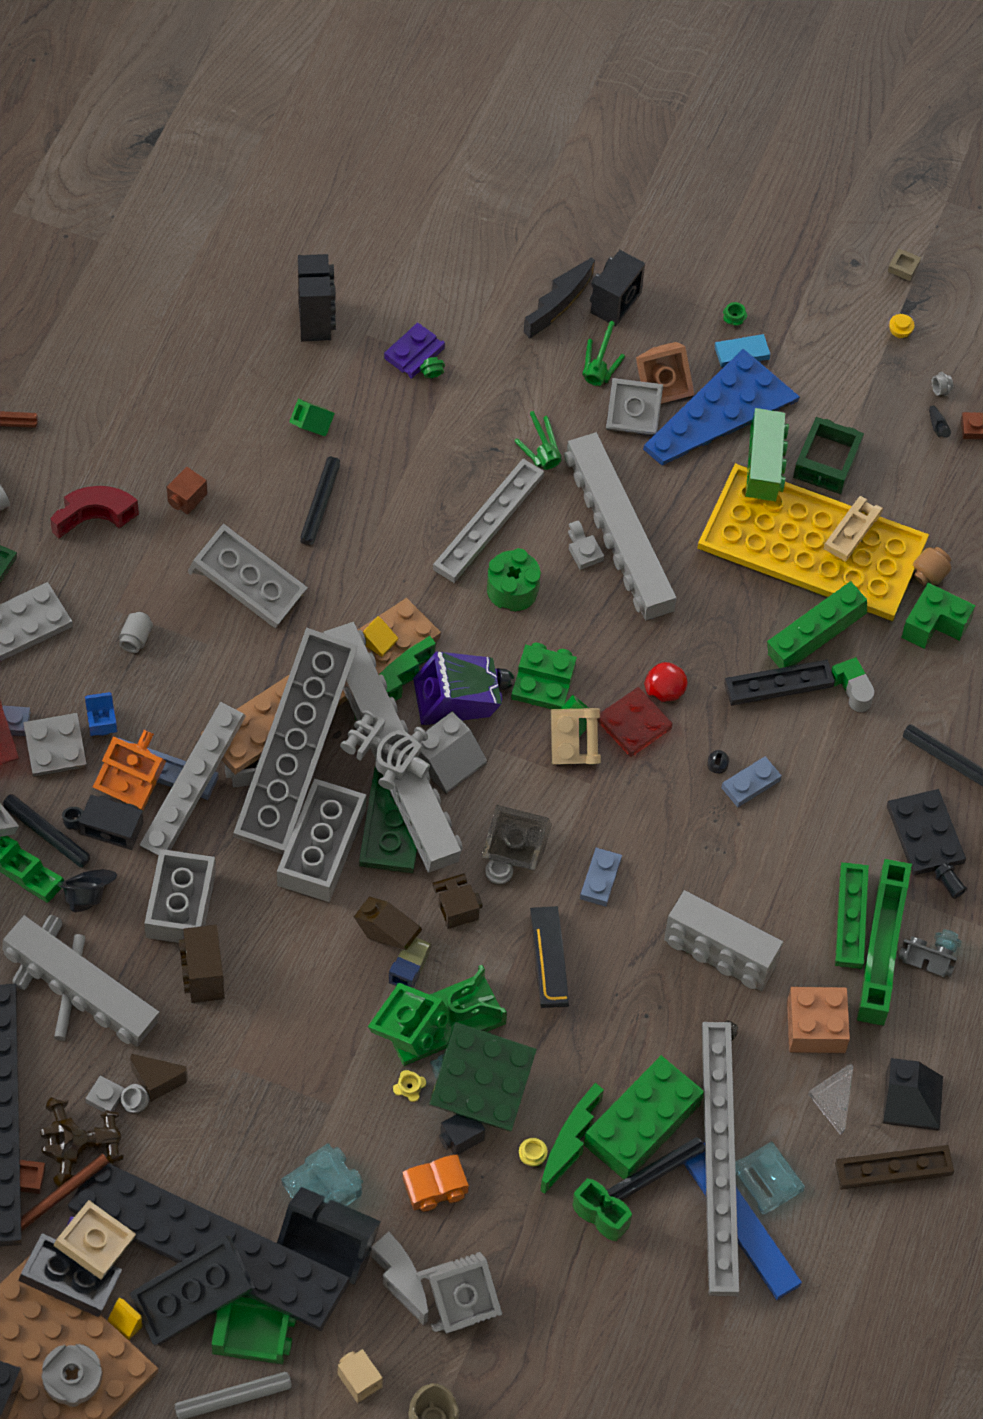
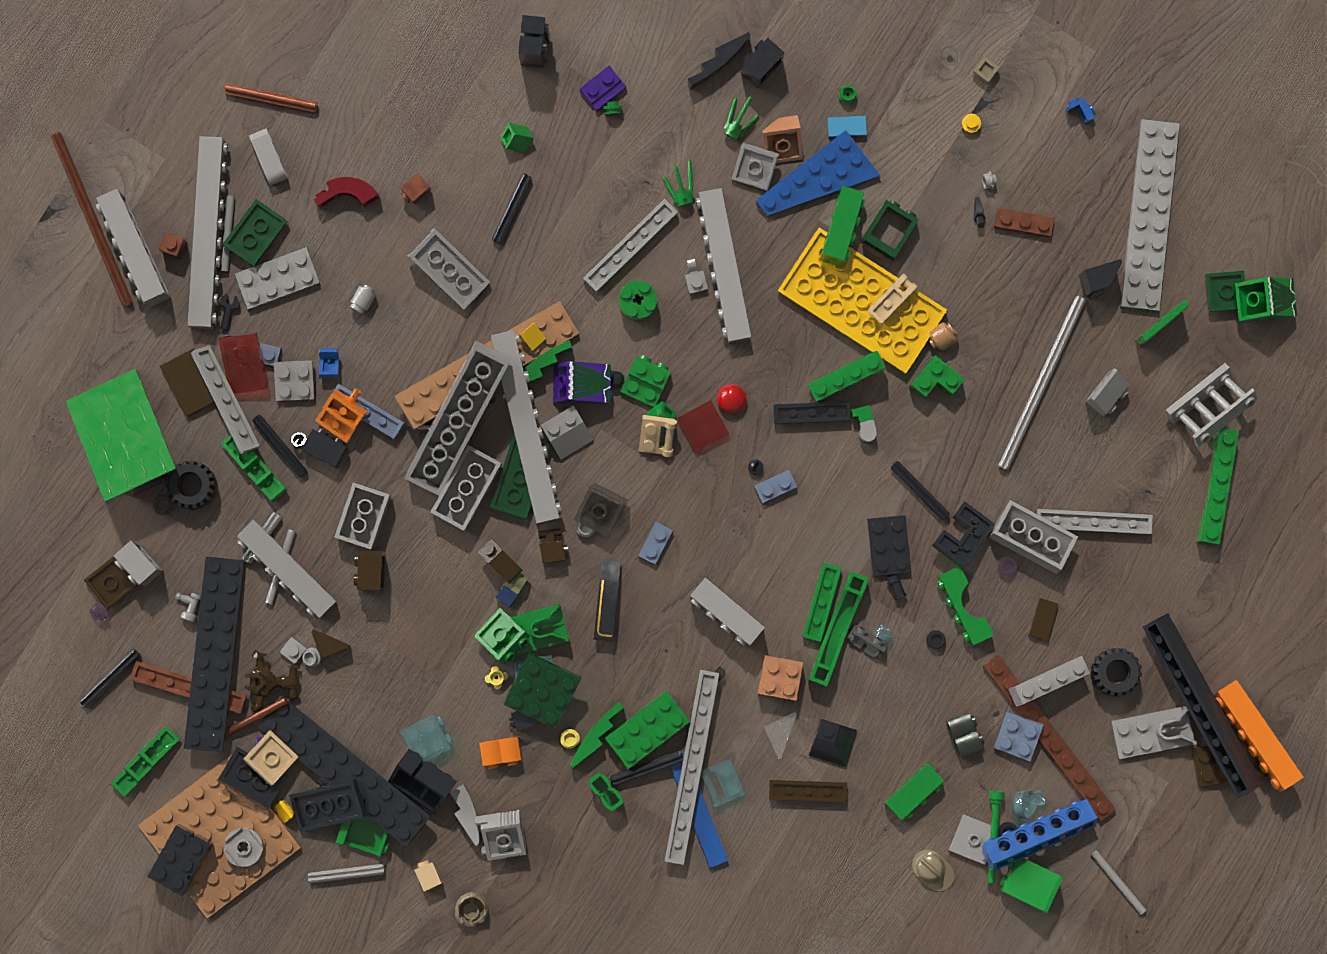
camera: 10 degrees right, 25 degrees up
(86, 888) = (301, 495): black piece -> none
(193, 779) = (384, 430): light grey plate -> none
(407, 757) = (534, 448): light grey piece -> none

